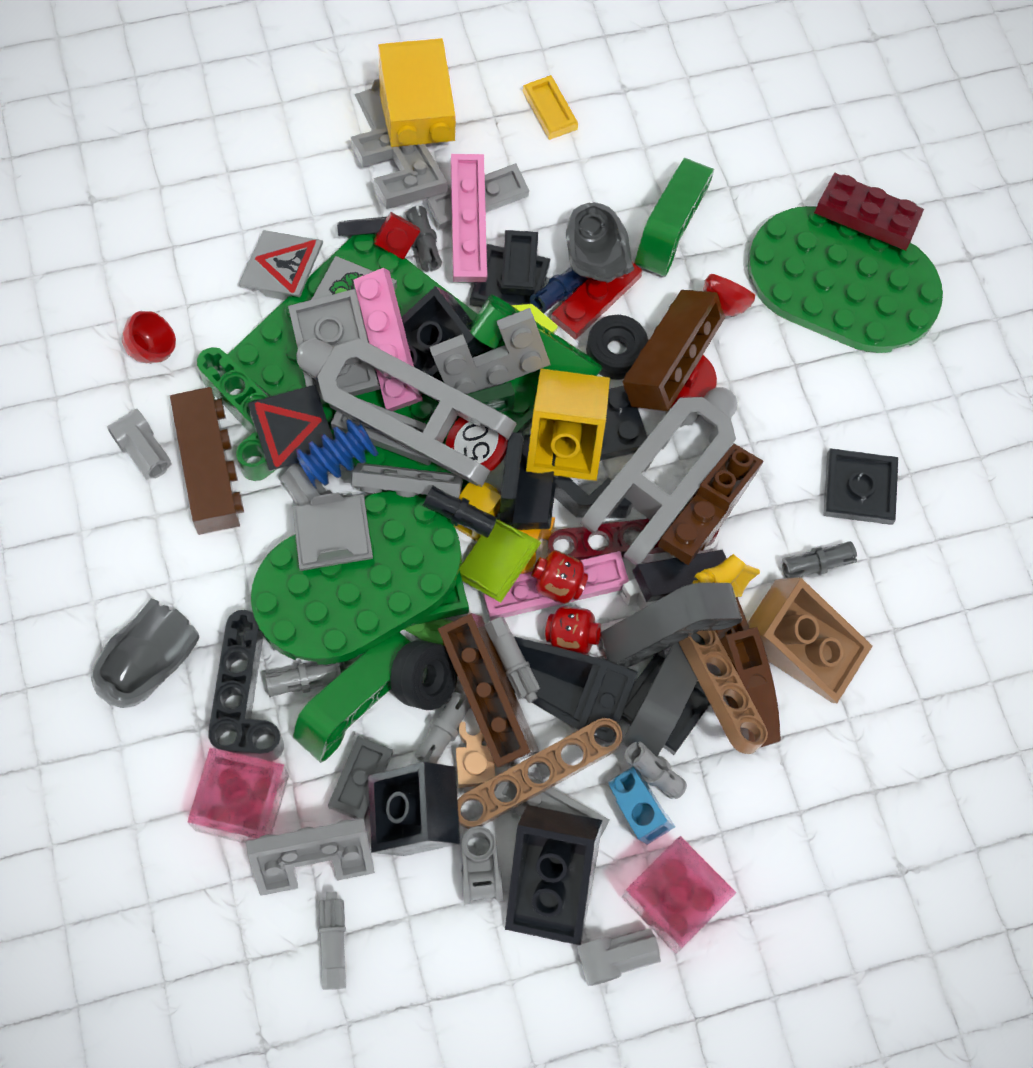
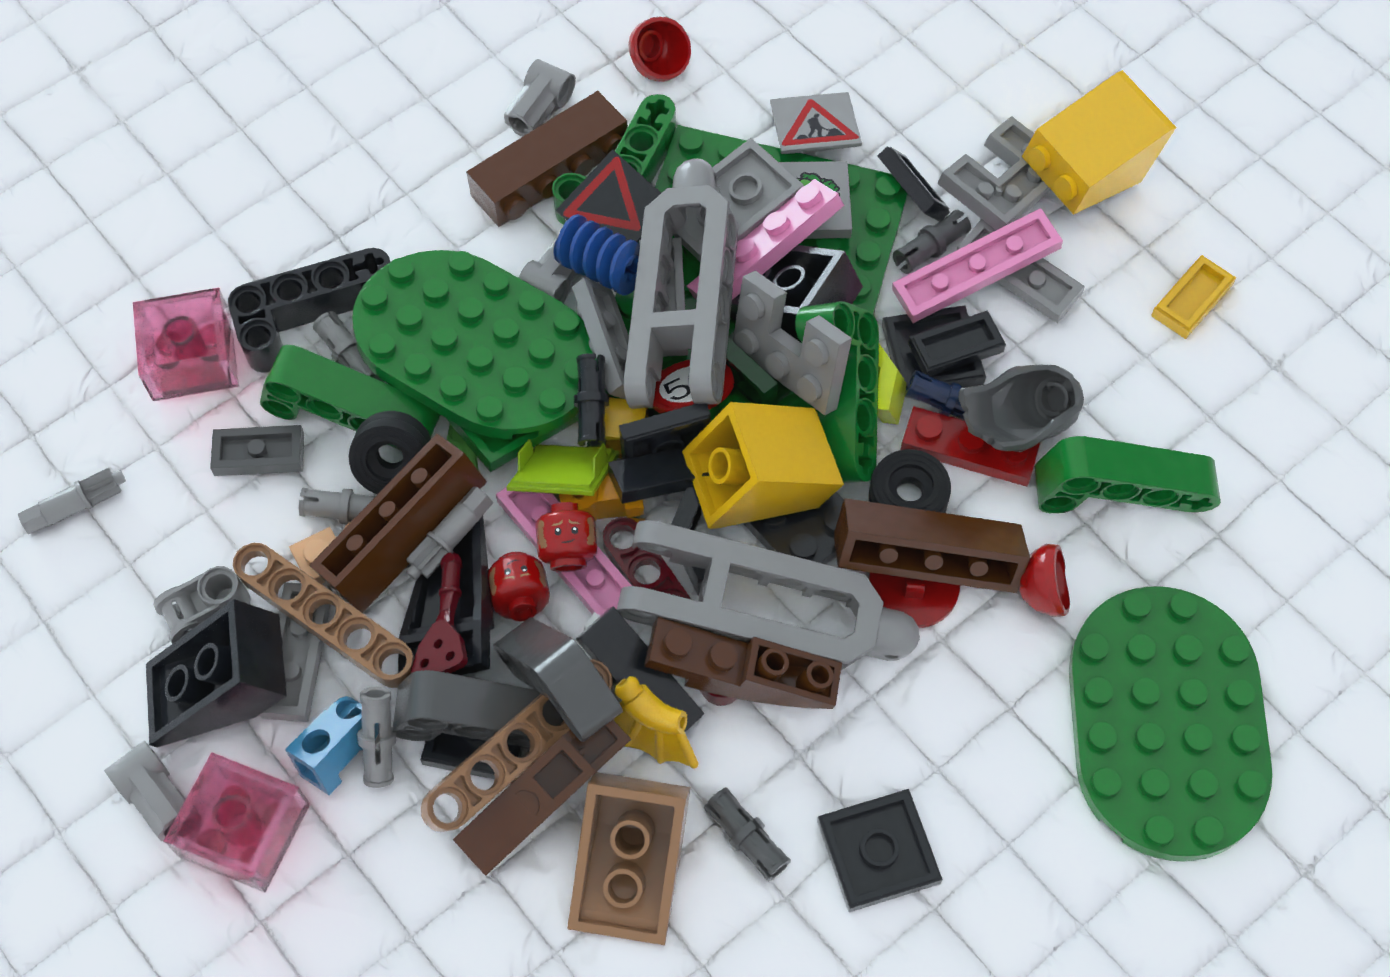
camera: 70 degrees right, 5 degrees down
(143, 655) = (305, 197): dark grey hair -> none
(276, 856) = (136, 417): light grey plate -> none
(332, 531) = (511, 293): light grey piece -> none
(397, 235) = (911, 207): red plate -> none
(413, 809) = (229, 506): black brick -> none
(596, 689) = (443, 629): none -> dark red piece
(869, 210) = (1282, 709): dark red plate -> none

